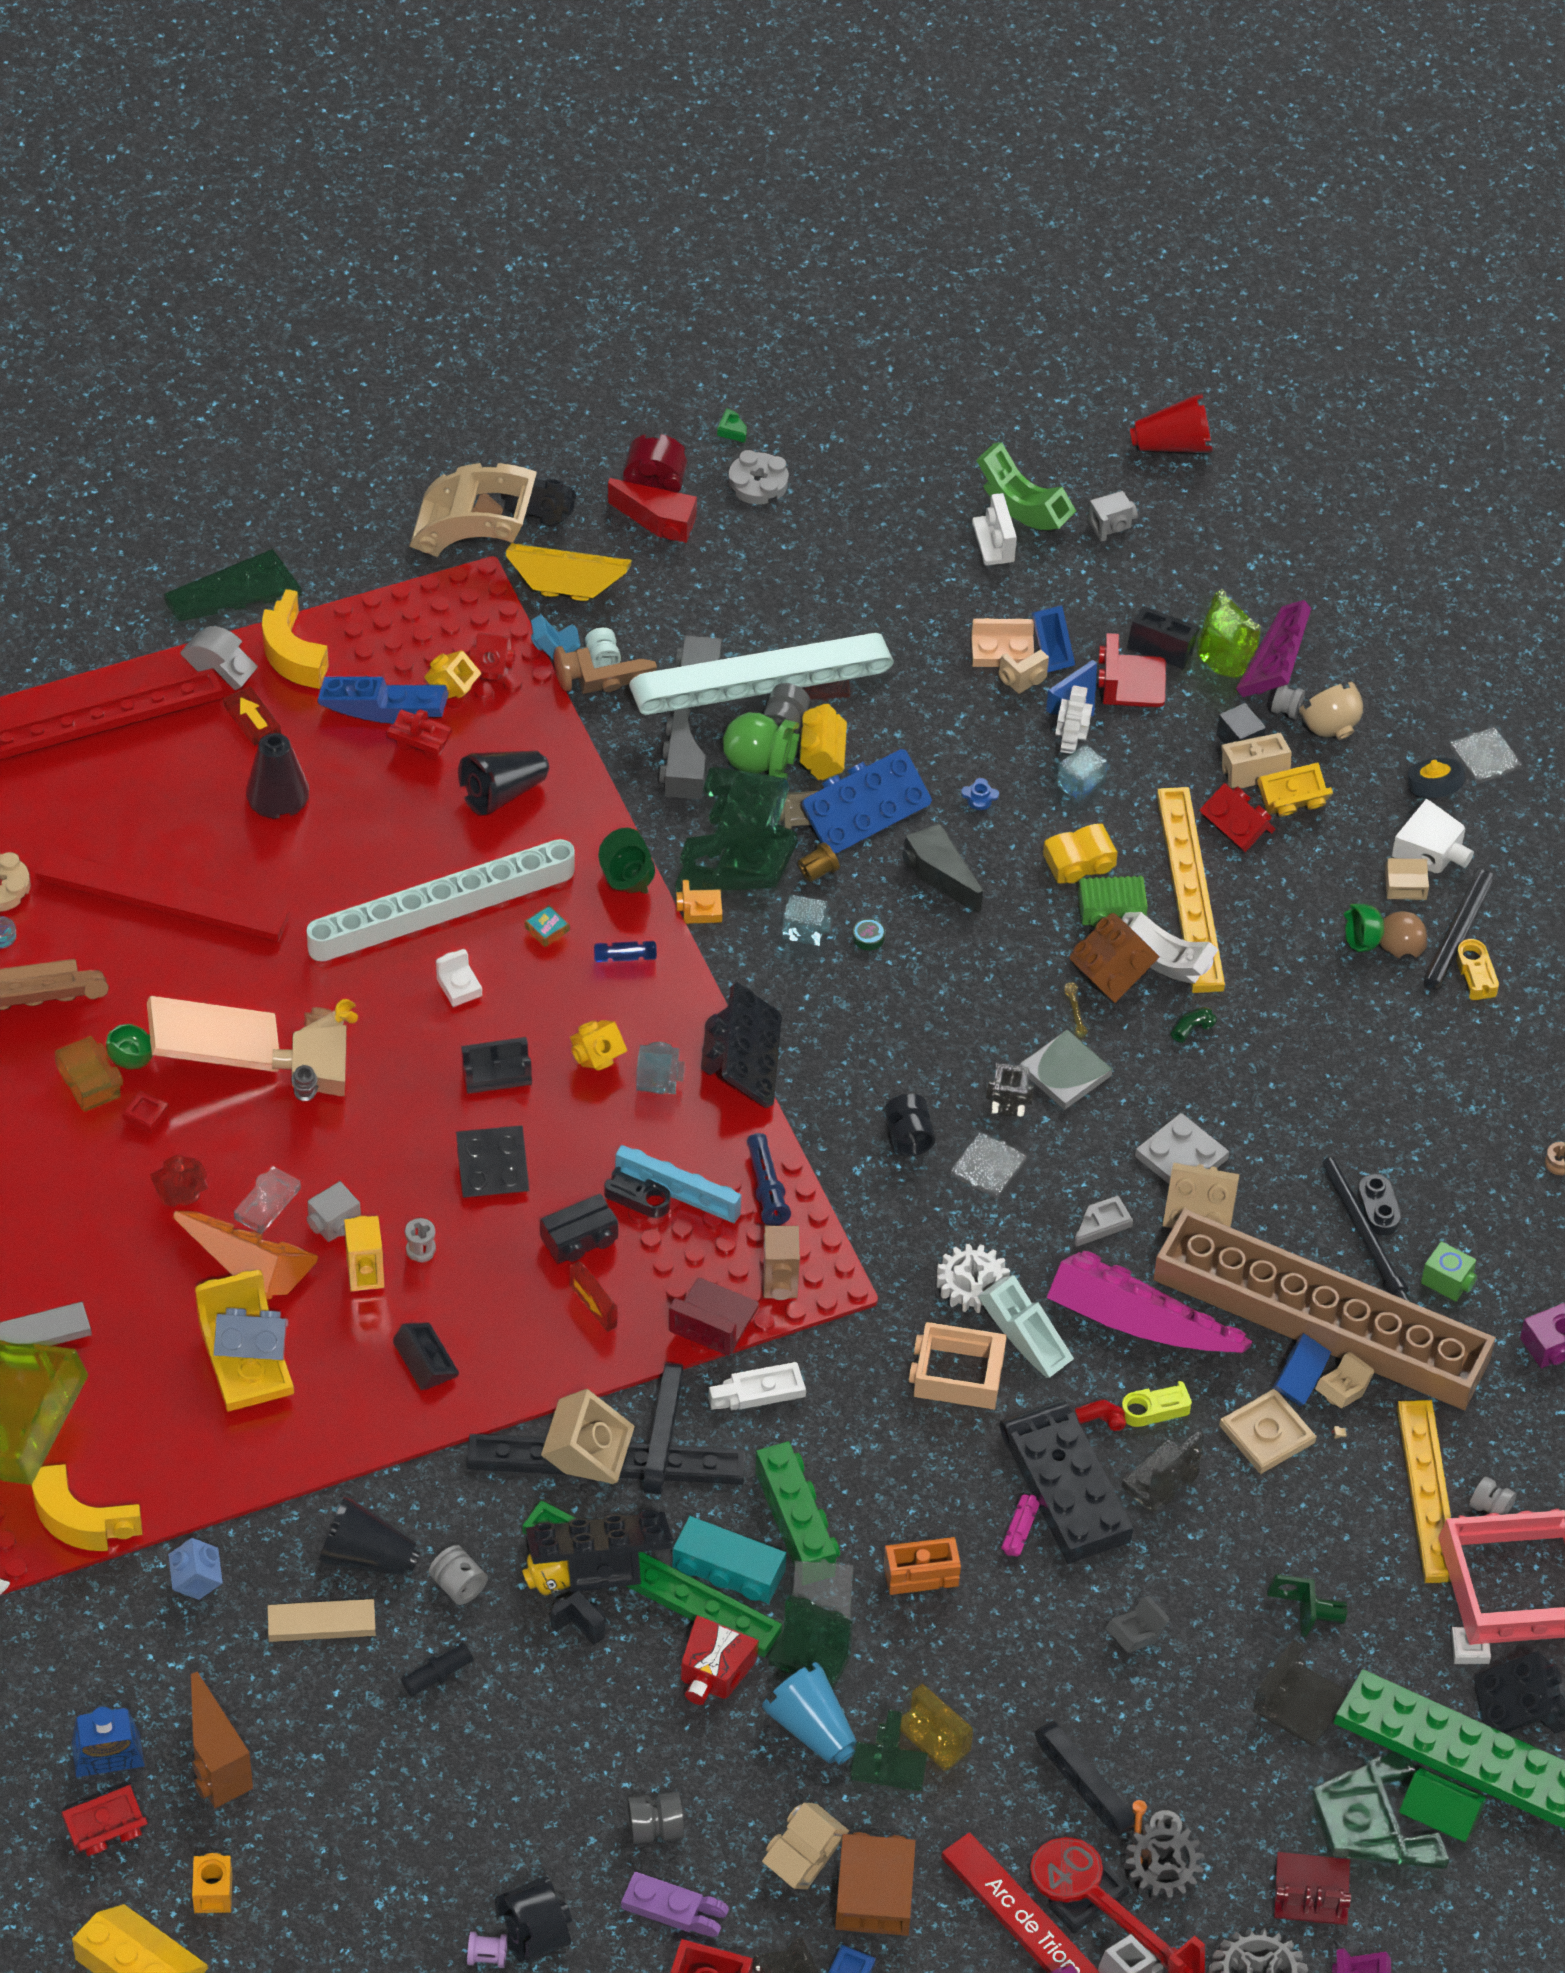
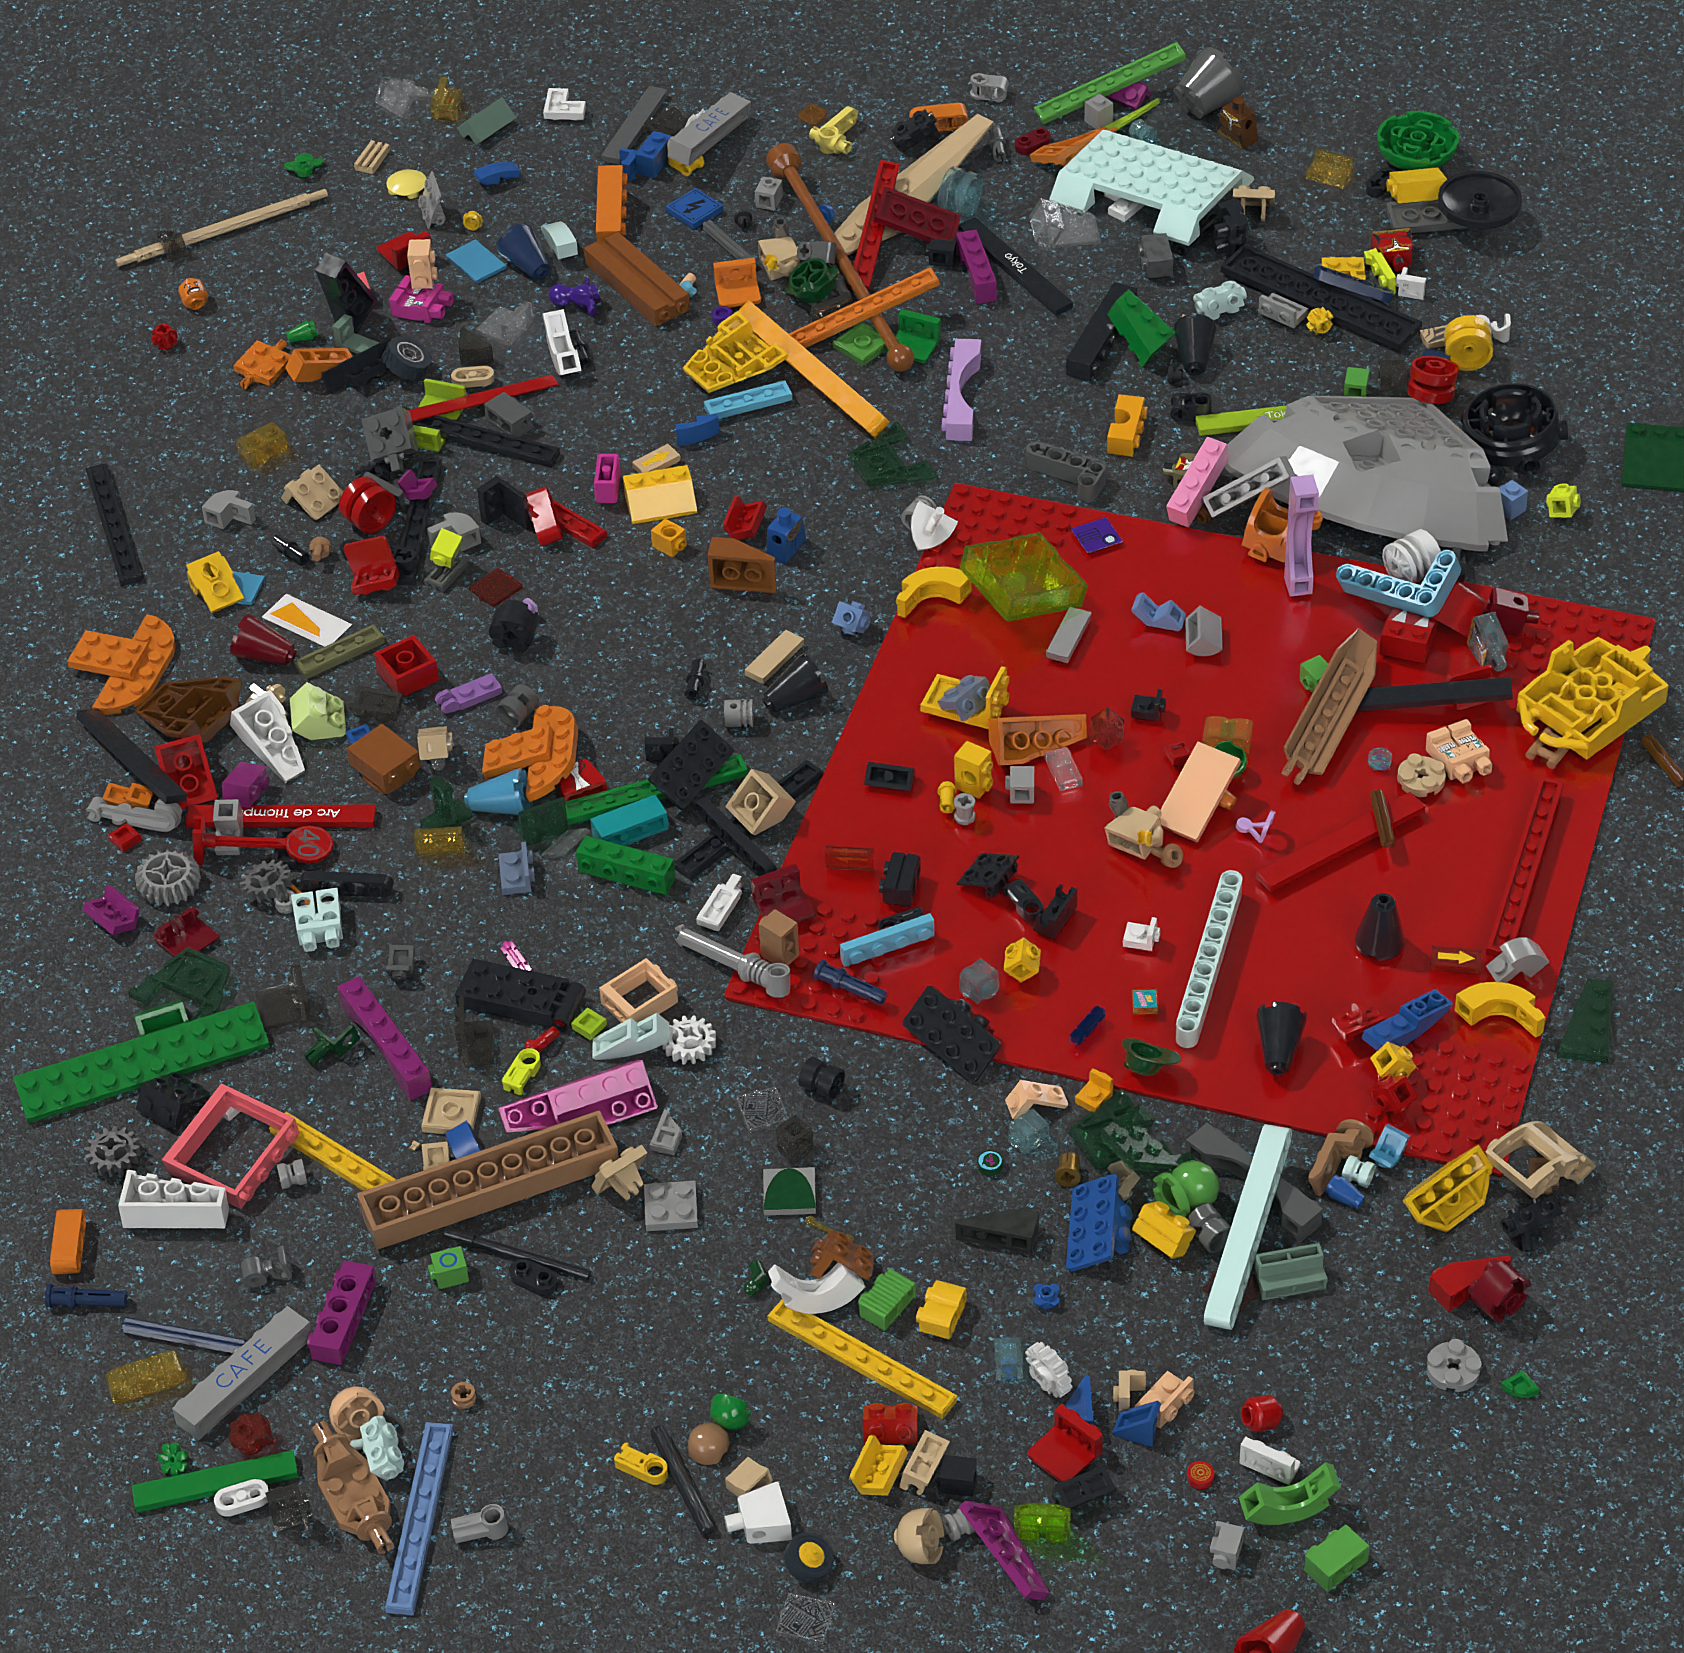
camera: 135 degrees right, 5 degrees down
(96, 1178) = (1148, 707): none -> black bracket
(105, 865) = (1382, 818): none -> reddish brown axle
(208, 990) = (1245, 825): none -> lavender piece
(407, 1276) = (947, 791): none -> yellow pin
(499, 1110) = (1023, 898): none -> black piece
(636, 645) = (1344, 1192): none -> blue cone
(710, 1722) = (546, 749): none -> orange plate
(765, 936) = (1030, 1093): none -> light nougat bracket
(768, 629) = (1290, 1271): none -> sand green piece
(833, 1280) = (750, 967): none -> light grey piece
(897, 1625) = (516, 871): none -> sand blue bracket
(922, 1565) = (533, 891): orange brick -> none
(952, 565) = (1261, 1413): none -> red head
(1039, 1386) = (589, 1023): none -> lime plate
(1046, 441) = (1336, 1557): none -> bright green brick
(1054, 579) = (1200, 1475): none -> red tile
(1160, 1761) = (319, 926): none -> light aqua hips
(1249, 1555) = (402, 1059): none -> magenta arch

